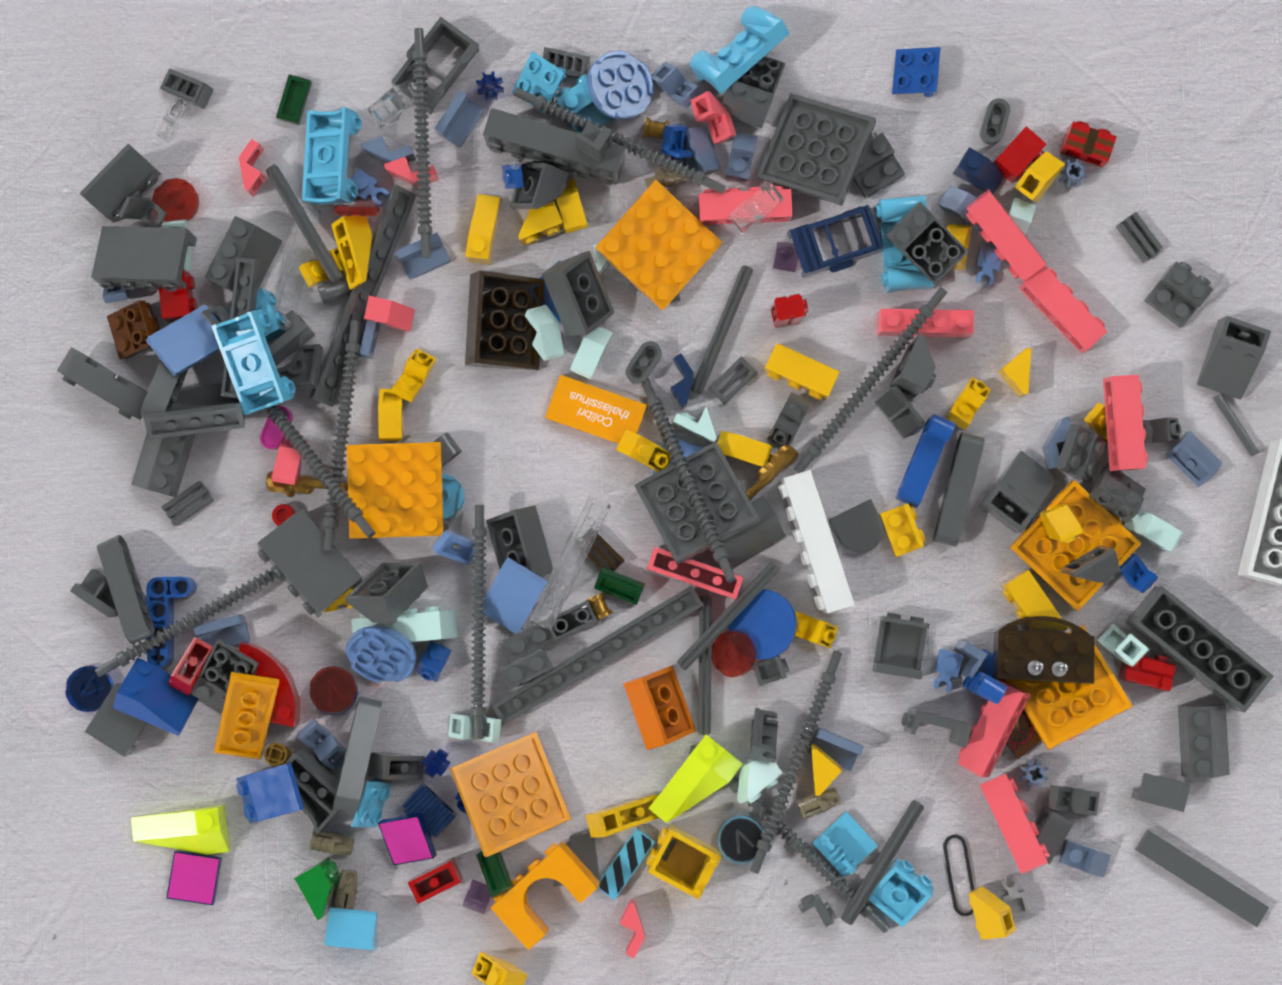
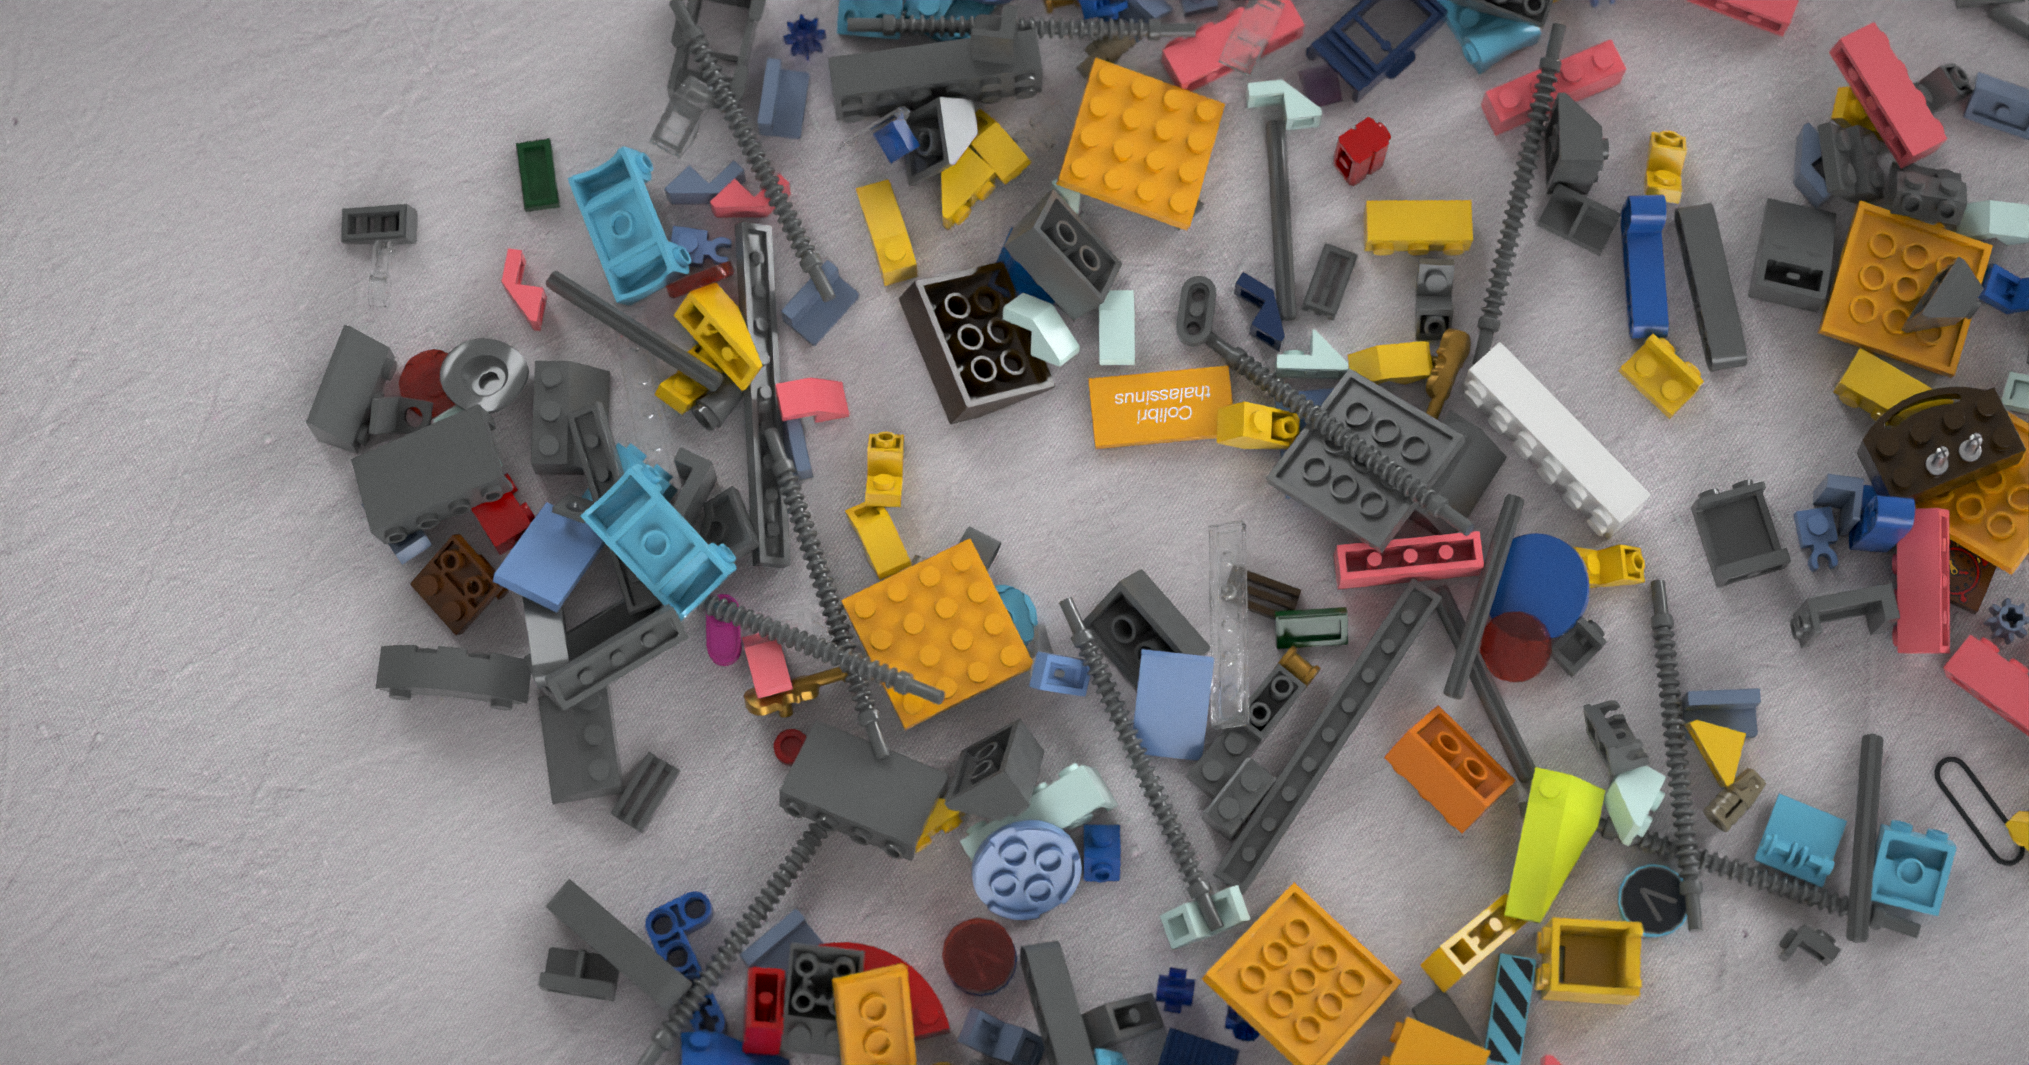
camera: 25 degrees left, 10 degrees down
(203, 209) = (483, 374): none -> dark grey hat
(763, 266) = (1296, 108): none -> light aqua slope
(859, 527) = (1603, 399): dark grey tile -> none
(1017, 372) = (1711, 98): yellow slope -> none
(1061, 523) = (1872, 262): yellow slope -> none

